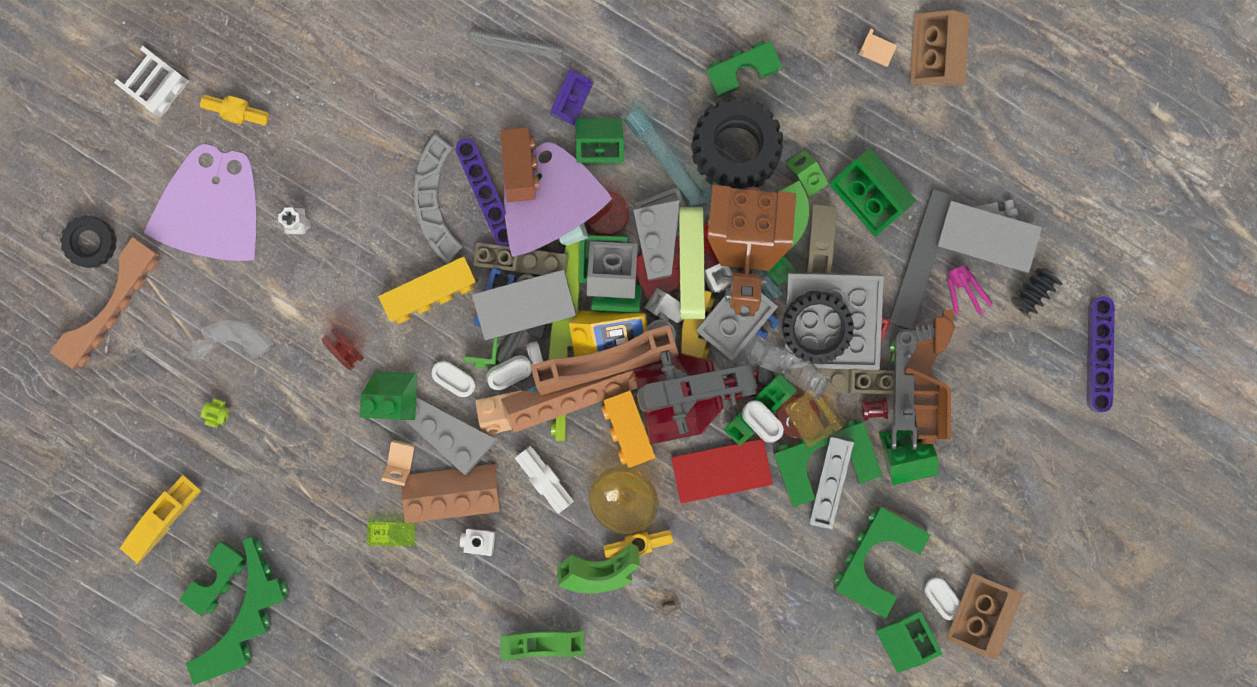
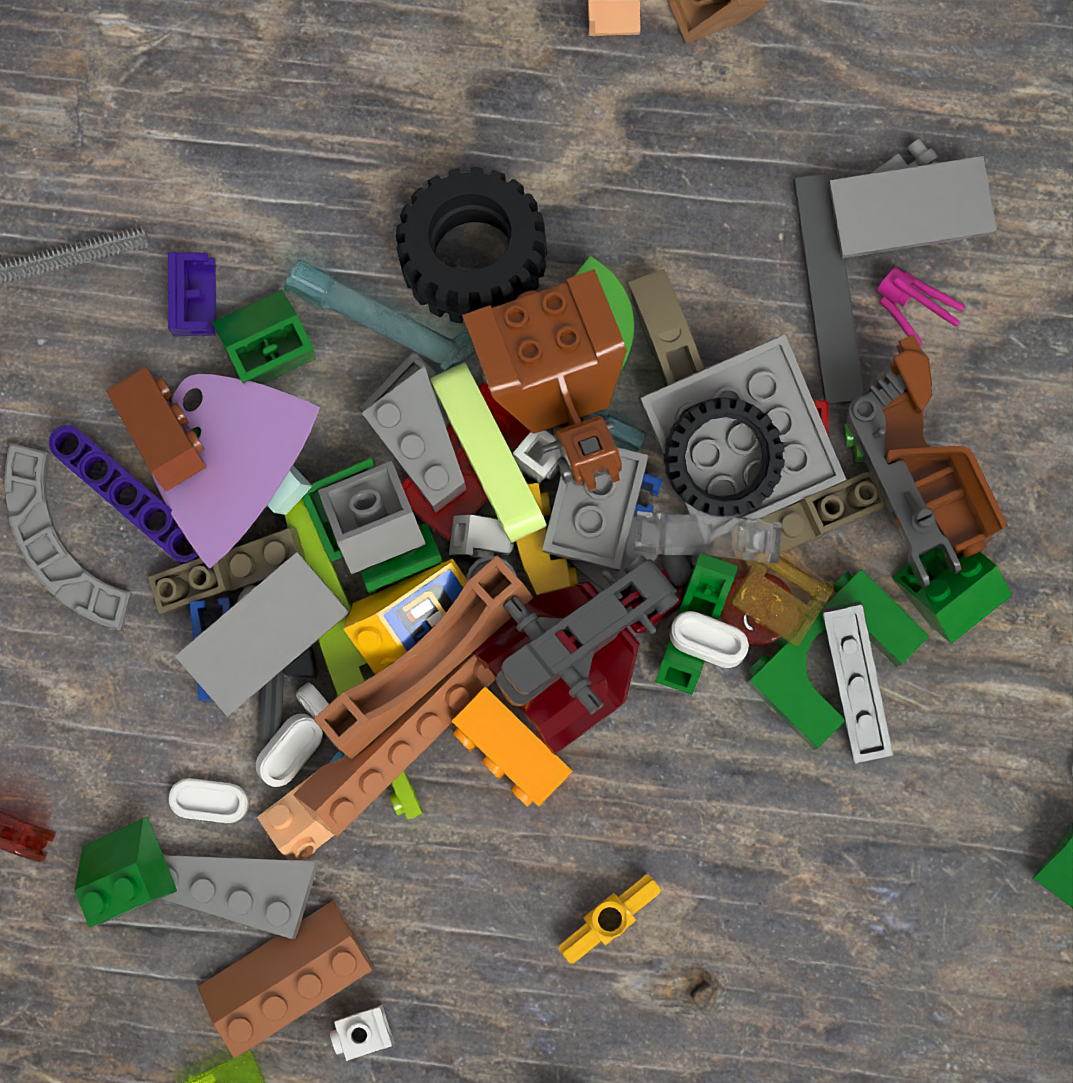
camera: 30 degrees left, 5 degrees down
(399, 462) = (183, 968): light nougat bracket -> none
(428, 290) = (107, 683): yellow brick -> none
(481, 362) = (241, 754): bright green bracket -> none
(544, 479) = (419, 888): white piece -> none
(598, 576) = (572, 998): bright green arch -> none
(611, 217) = (332, 443): clear red head -> none
(615, 509) = (553, 882): clear yellow dish -> none
(721, 471) = (683, 746): red tile -> none
(761, 59) = (448, 107): green arch -> none
(780, 271) = (626, 403): green plate -> none
(808, 173) = (599, 240): bright green bracket -> none
(854, 581) = (962, 816): green arch -> none
(872, 192) = (707, 224): green slope -> none
(874, 409) = (868, 543): dark red bush -> none
(1035, 291) = (1018, 256): black piece -> none

